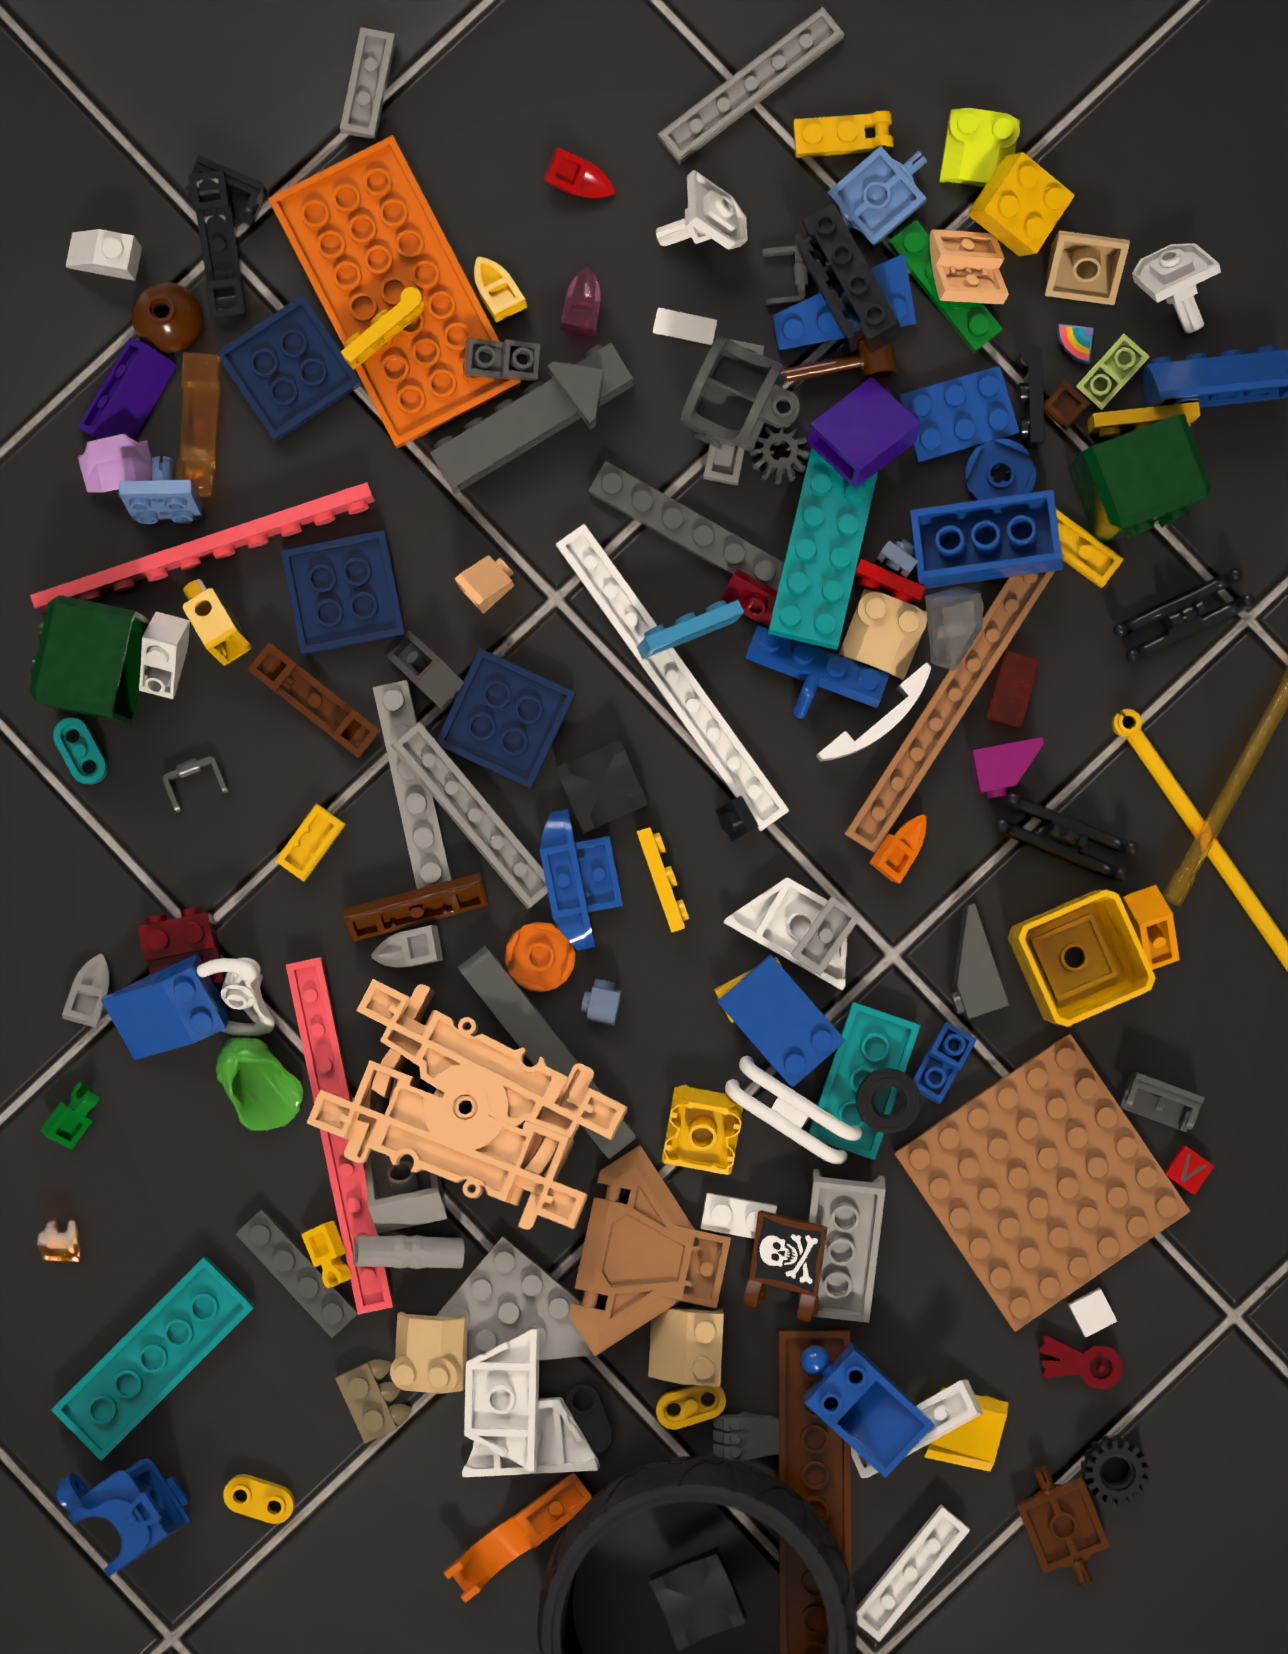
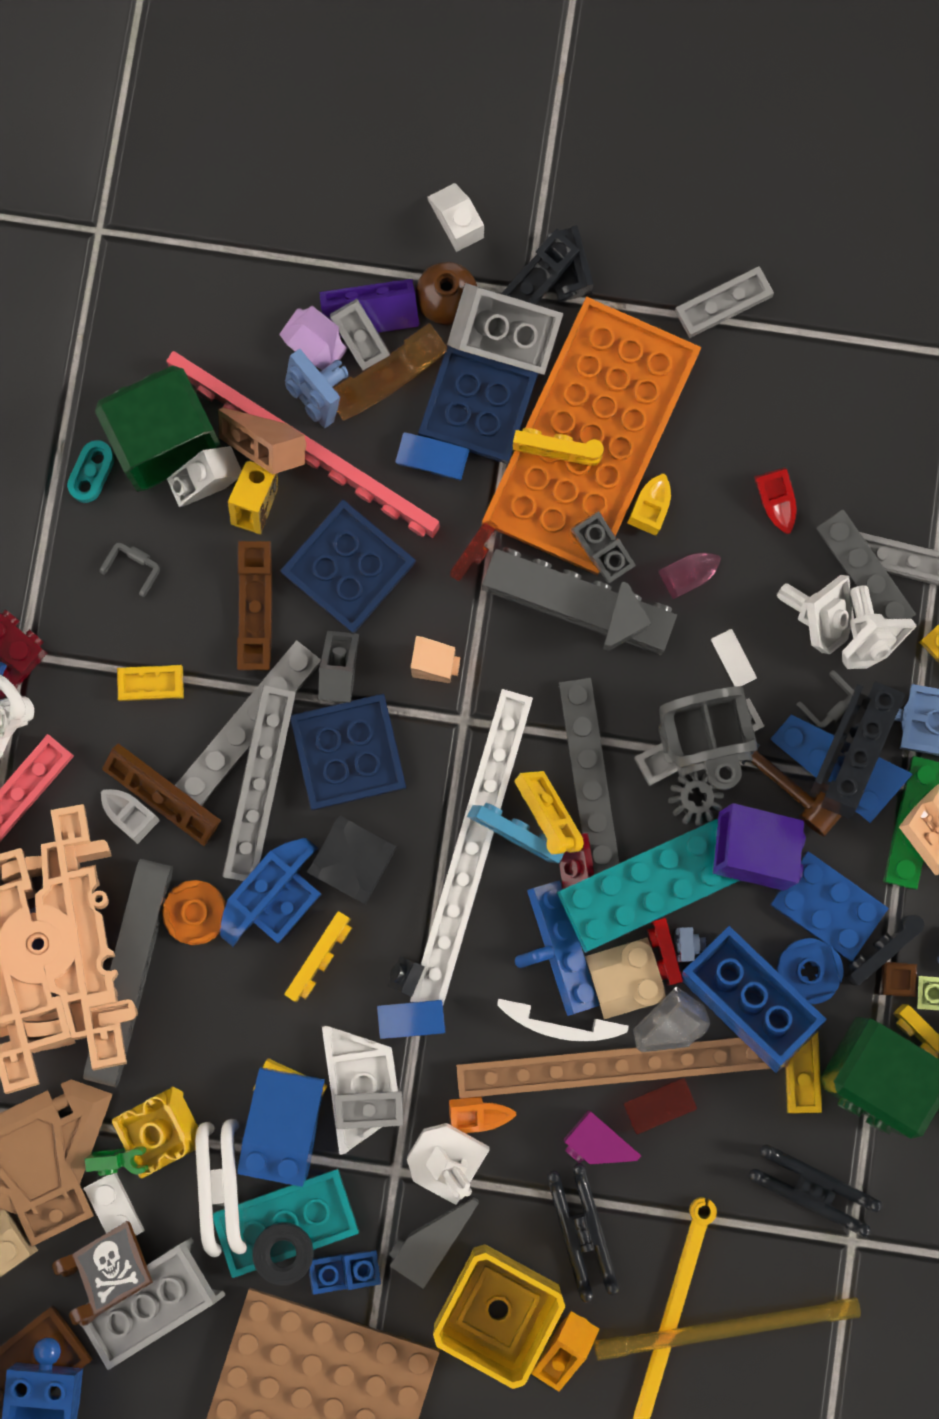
camera: 50 degrees right, 5 degrees down
(145, 421) = (360, 334): none -> light grey plate
(174, 578) = (263, 440): none -> nougat slope
(241, 291) = (504, 329): none -> light grey slope
(303, 444) = (432, 456): none -> blue slope
(418, 472) = (475, 550): none -> clear red plate
(602, 1002) = (195, 984): sand blue plate -> none
(694, 586) = (549, 813): none -> yellow plate
(696, 1187) = (109, 1161): none -> green plate
(699, 152) = (864, 566): none -> dark grey plate
(758, 189) = (872, 634): none -> white piece
(776, 841) = (411, 1019): none -> blue slope
(918, 905) = (446, 1161): none -> white piece

